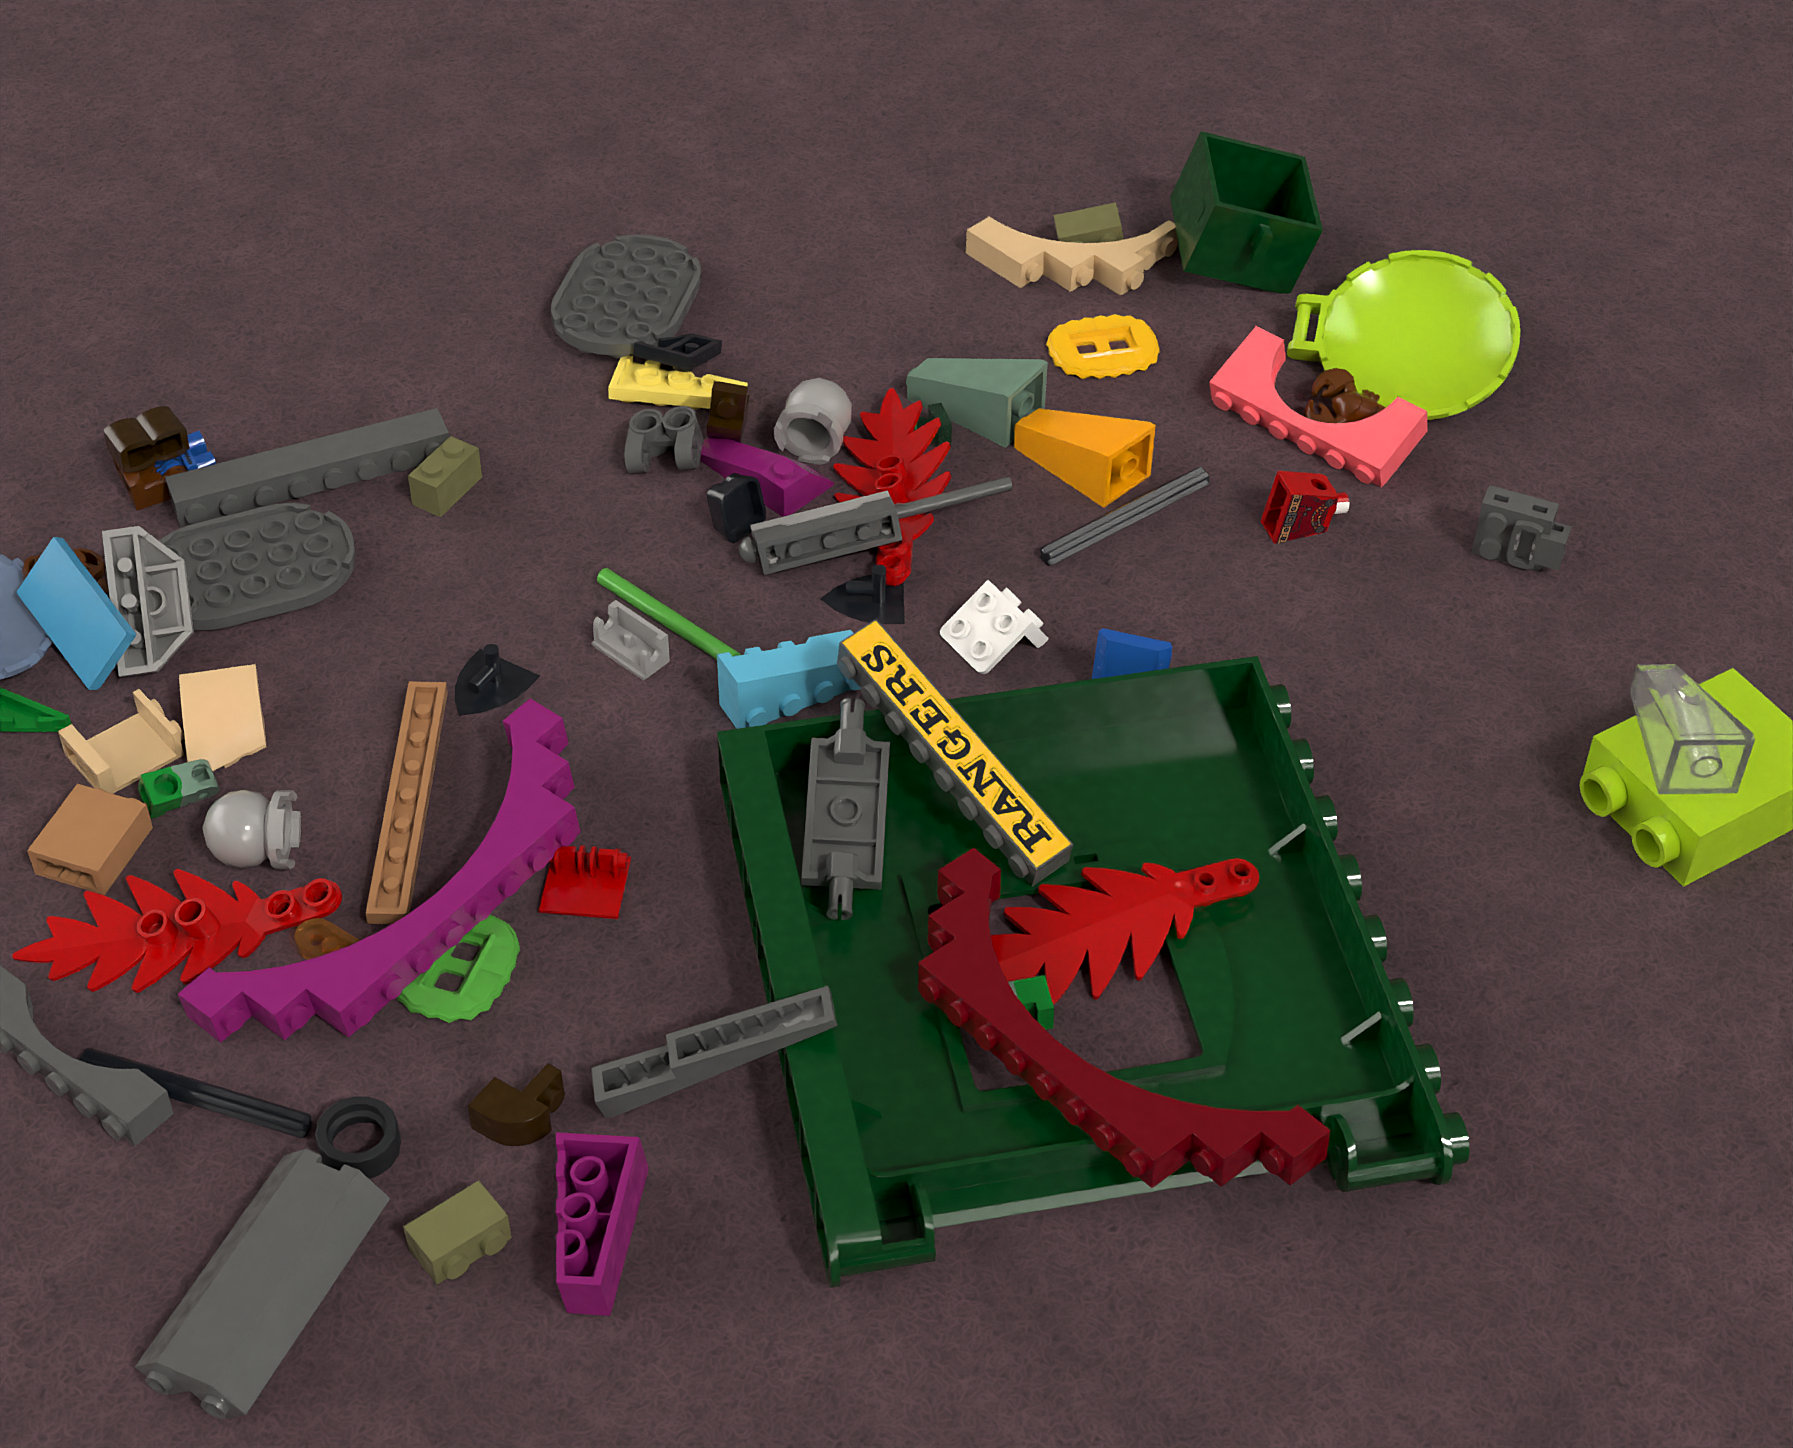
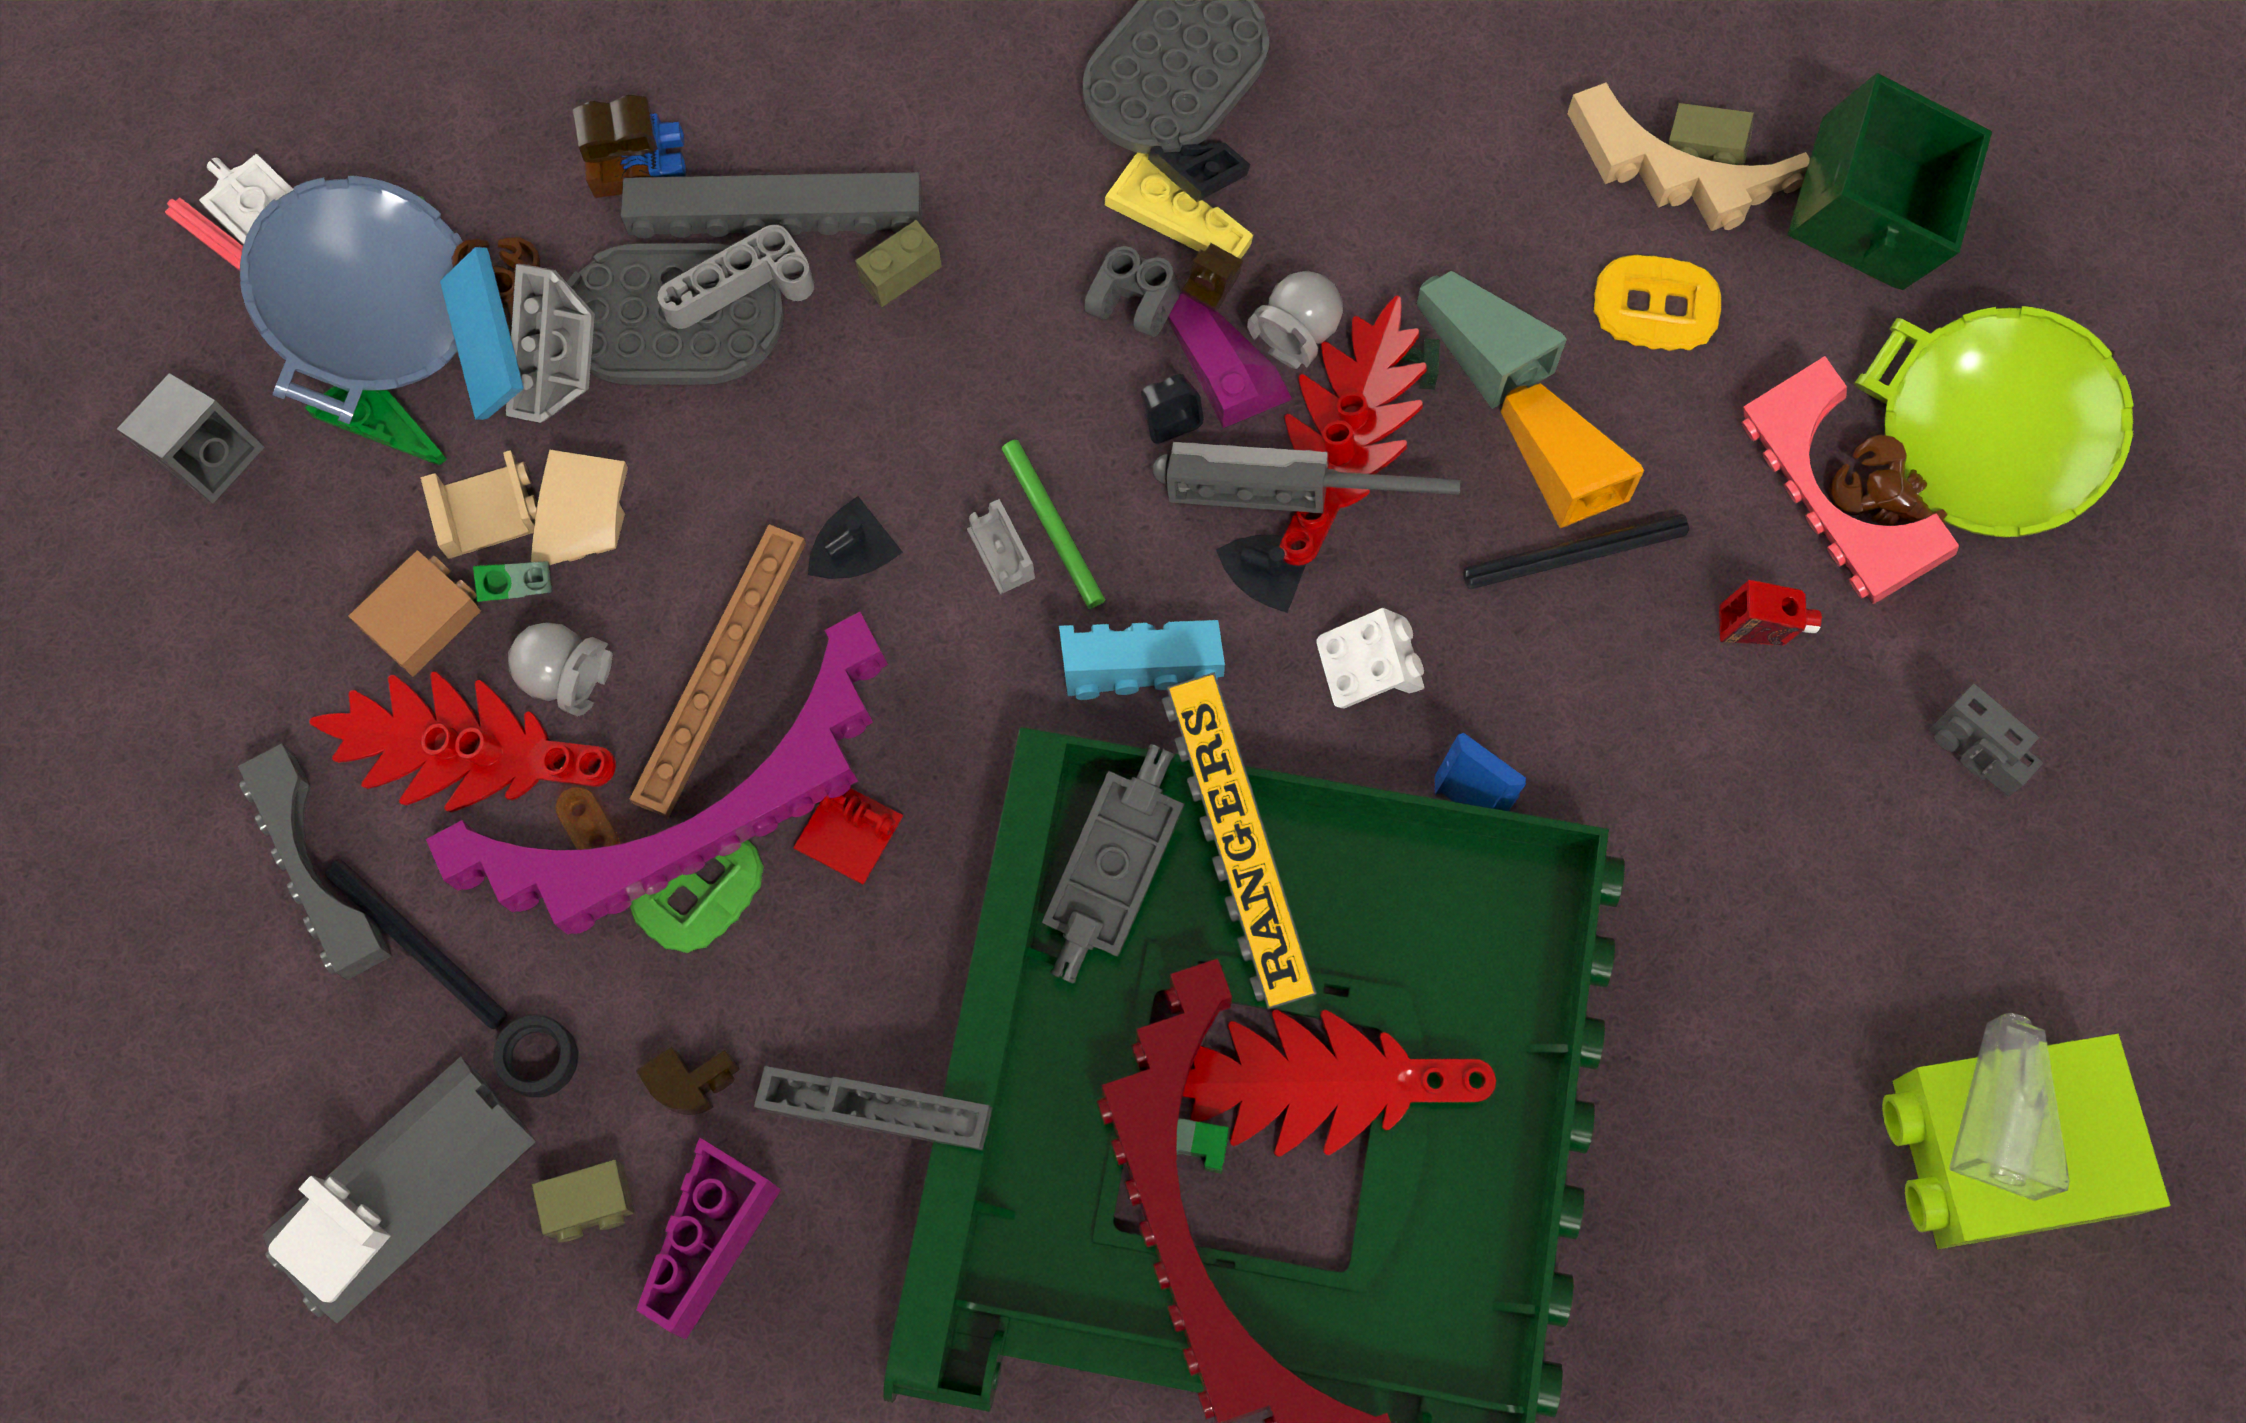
camera: 25 degrees right, 25 degrees up
(219, 1312) = (328, 1239): none -> white bracket
(302, 510) = (735, 283): none -> light grey beam

